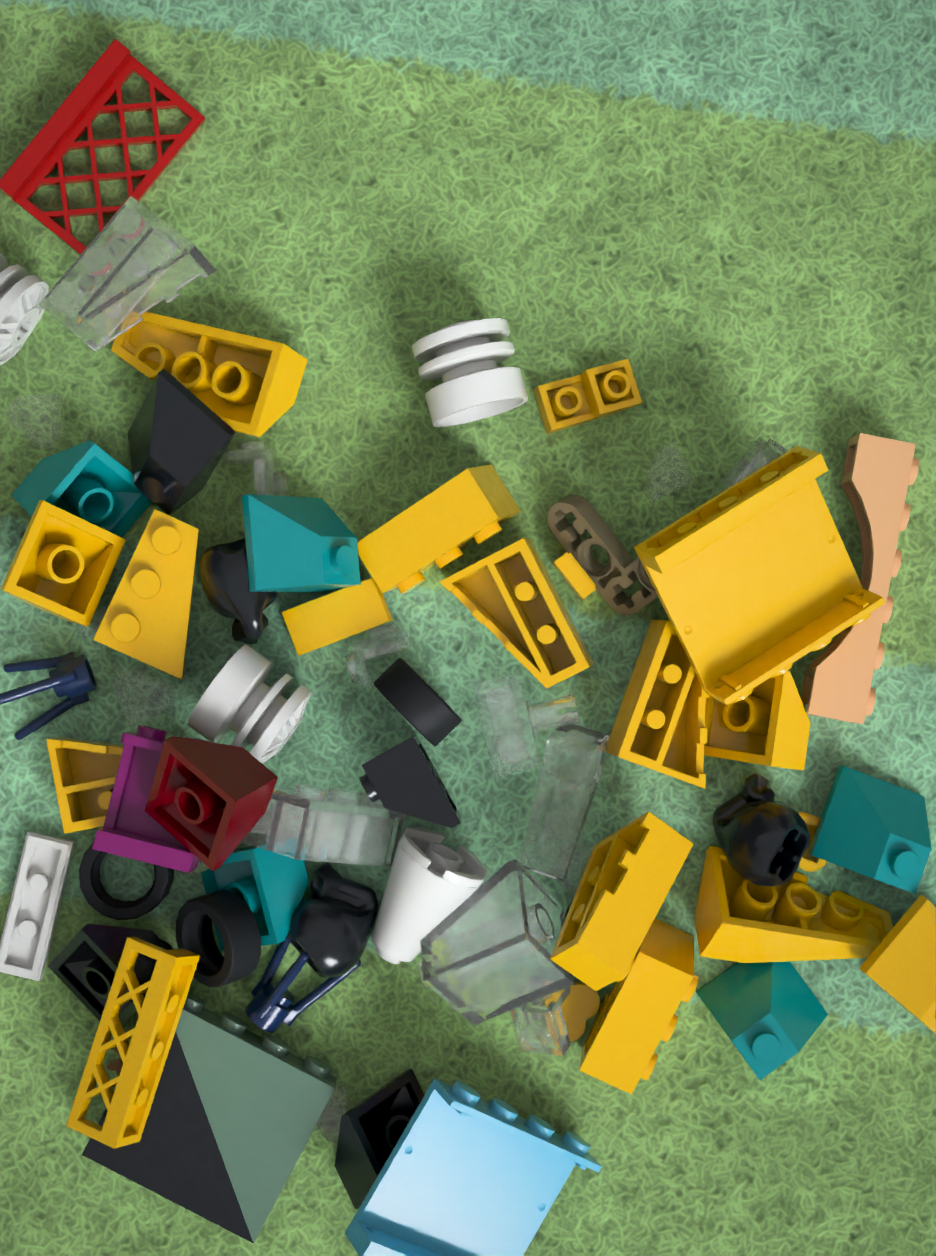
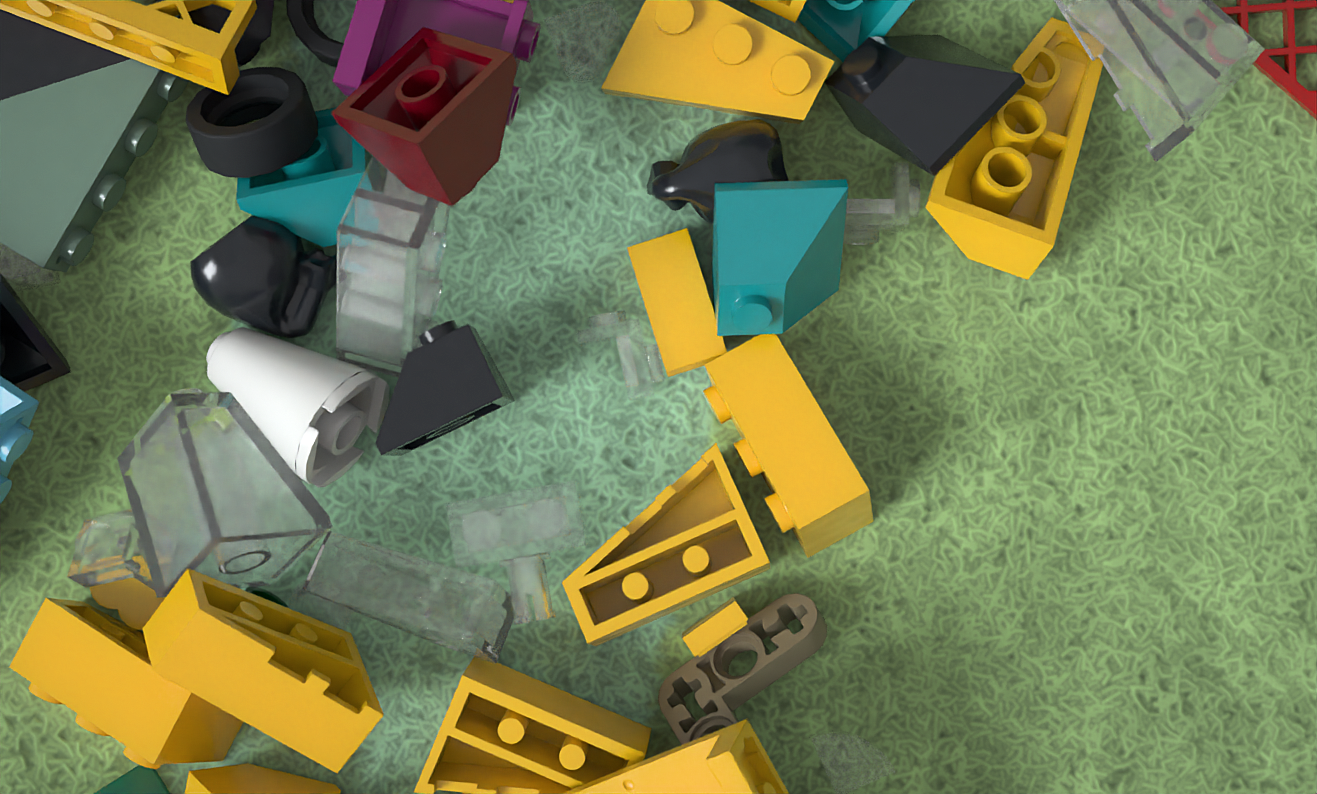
camera: 95 degrees right, 0 degrees up
(249, 707) = (559, 178): white wheel -> none
(273, 1001) = (169, 194): dark blue plant -> none
(417, 702) = (553, 404): black tyre -> none
(467, 362) = (1015, 495): white wheel -> none
(587, 396) = (960, 658): yellow slope -> none

